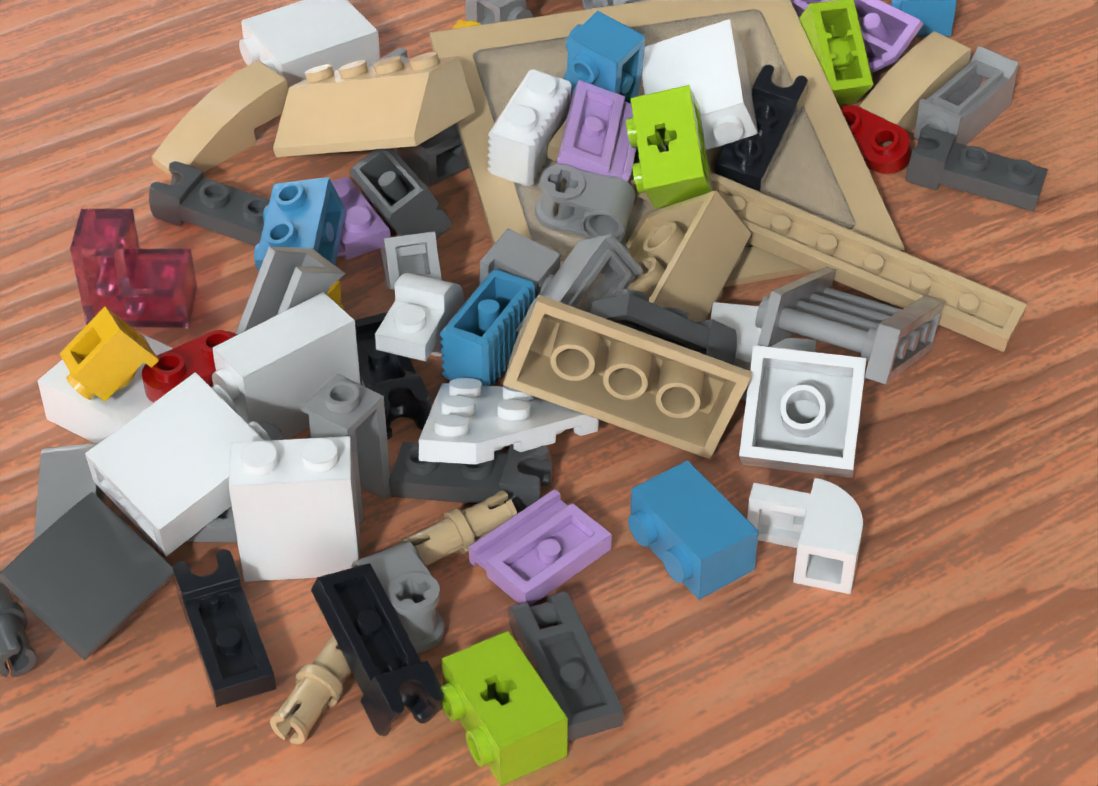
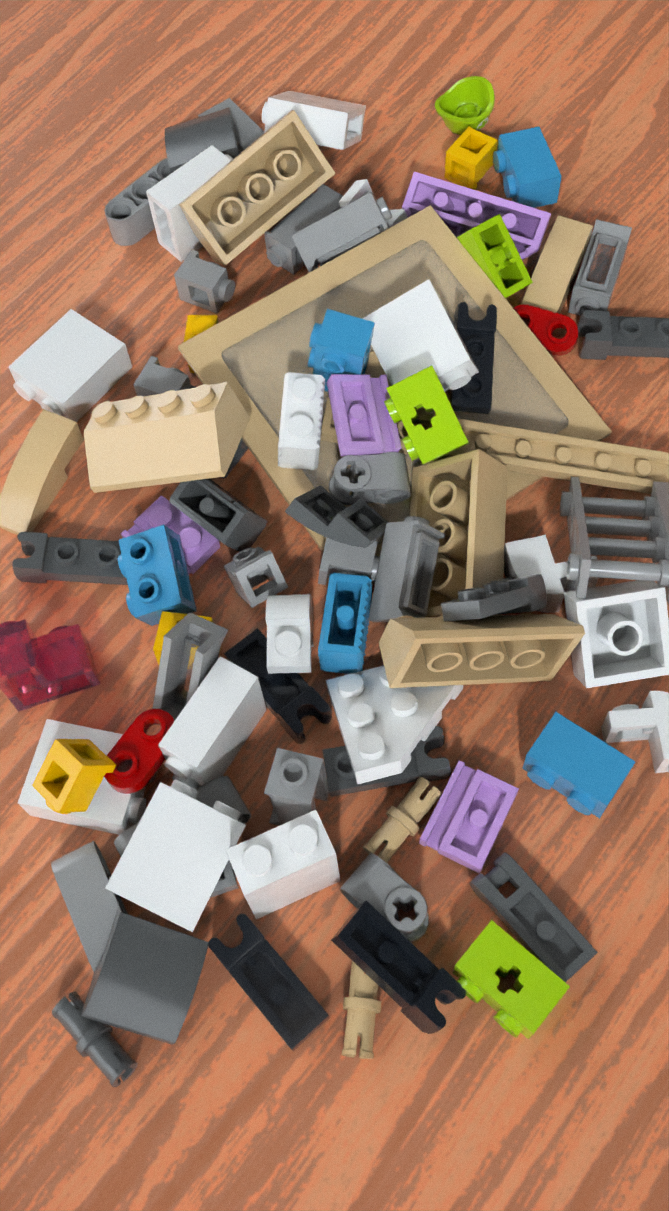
camera: 15 degrees left, 20 degrees up
(521, 214) = (327, 516): none -> dark grey slope

